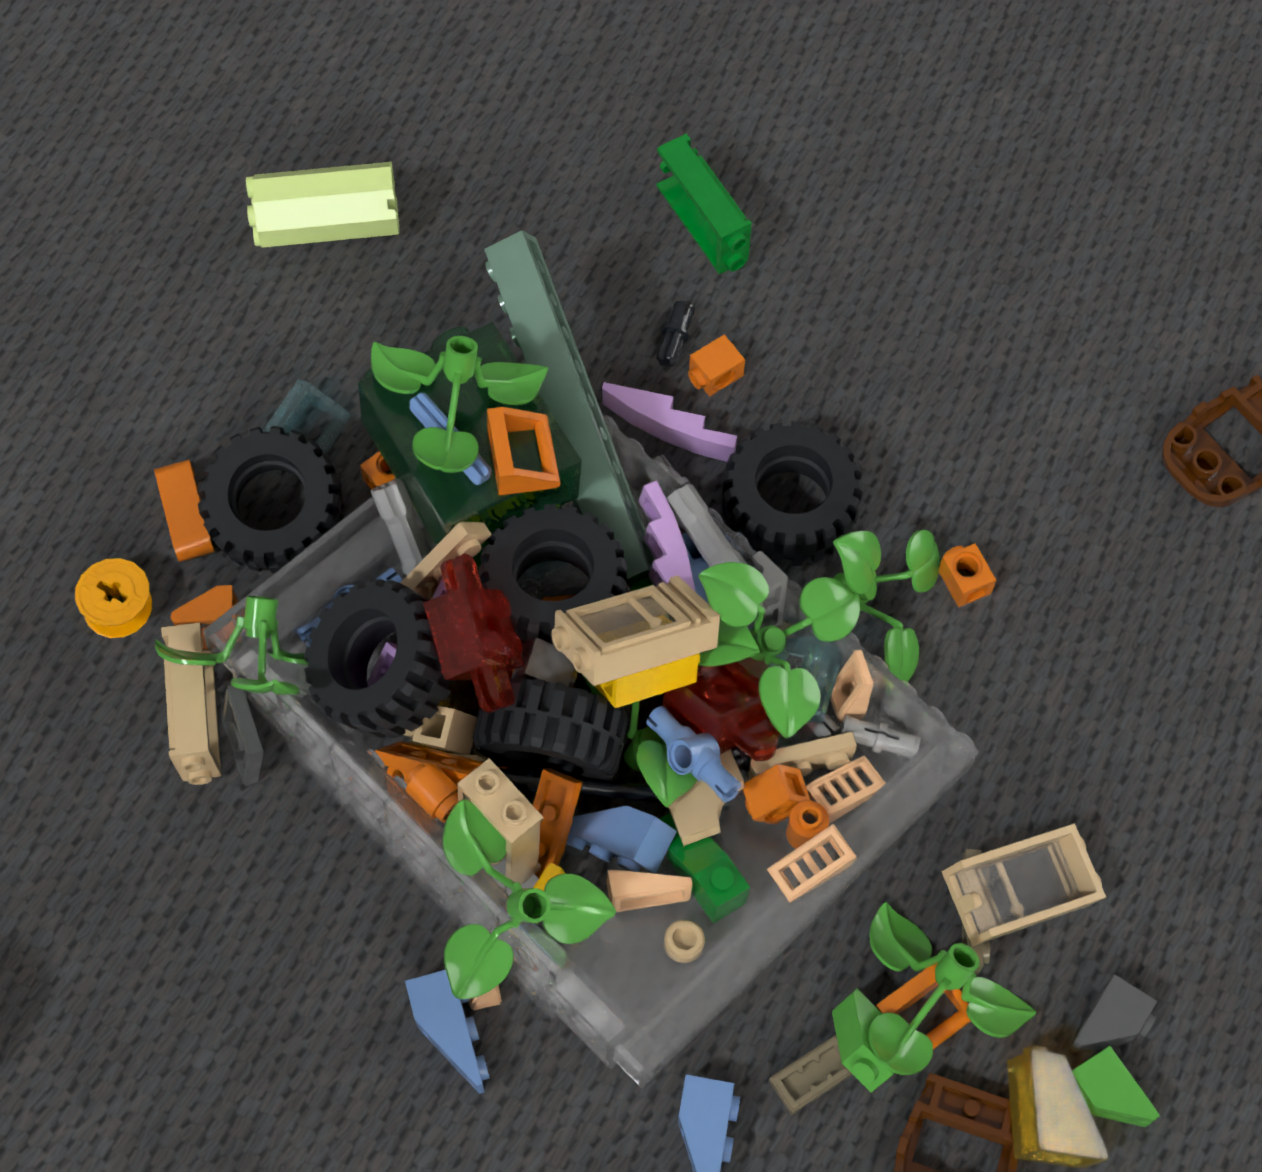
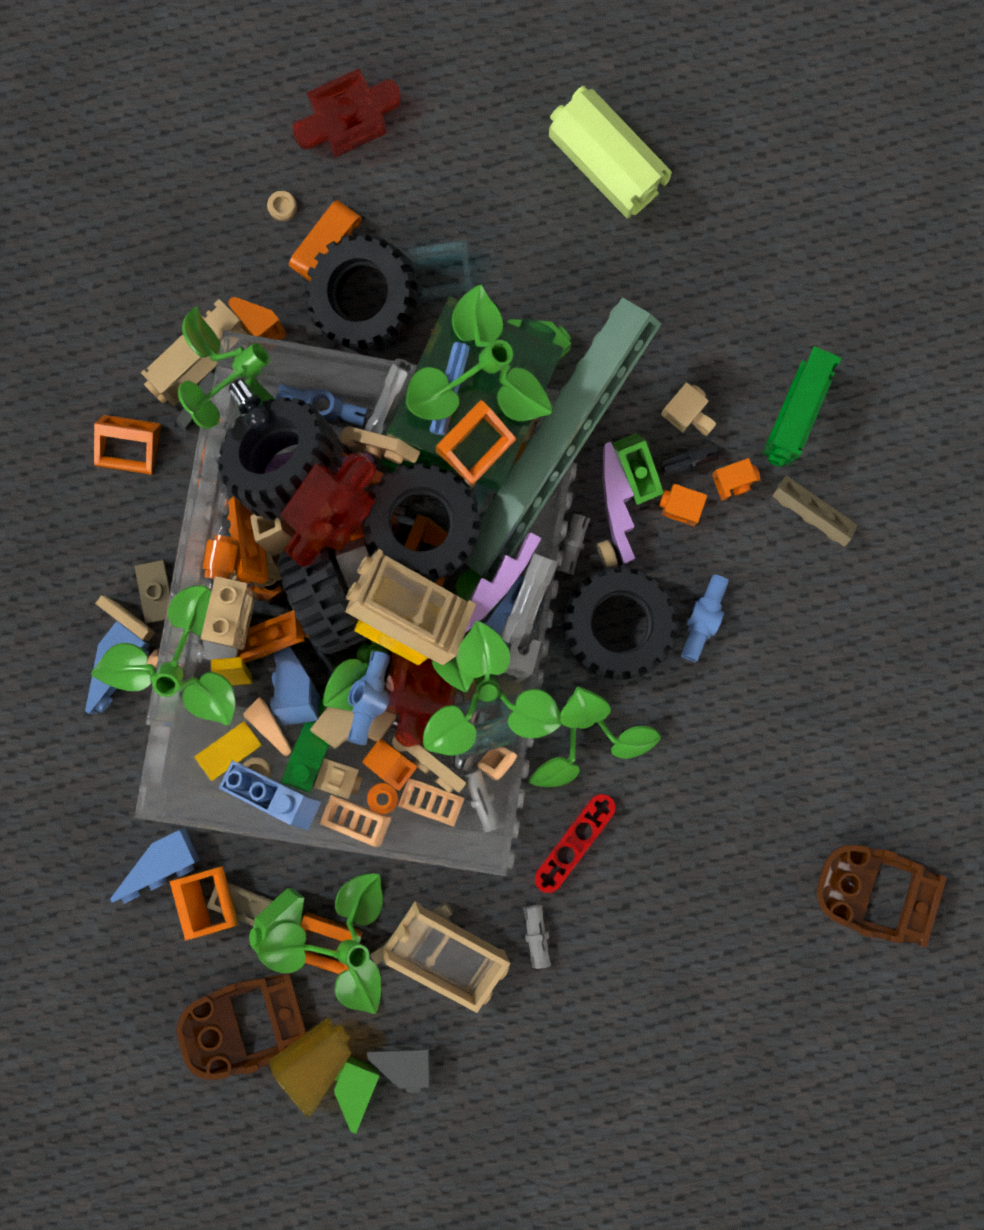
camera: 50 degrees right, 20 degrees up
(63, 398) = (341, 102): none -> clear red brick
(111, 528) = (282, 206): none -> tan tile
(116, 578) = (219, 243): light orange piece -> none
(207, 833) = (126, 429): none -> orange tile
(323, 645) = (257, 416): none -> black axle
(393, 979) = (125, 617): none -> tan tile
(402, 930) = (153, 590): none -> dark tan plate
(625, 304) = (687, 408): none -> tan brick
(639, 953) = (232, 746): none -> yellow tile
(649, 373) = (638, 467): none -> bright green slope
(711, 463) = (607, 554): none -> tan tile
(722, 926) = (270, 795): none -> medium blue slope
(726, 307) = (735, 478): none -> orange brick
(755, 854) = (338, 778): none -> tan brick
(780, 1128) = (192, 905): none -> orange tile
(811, 262) = (815, 511): none -> dark tan plate
(844, 420) = (705, 618): none -> medium blue pin
(962, 588) = (650, 789): orange brick -> none
(990, 689) = (578, 845): none -> red beam
(1062, 791) = (537, 936): none -> light grey pin

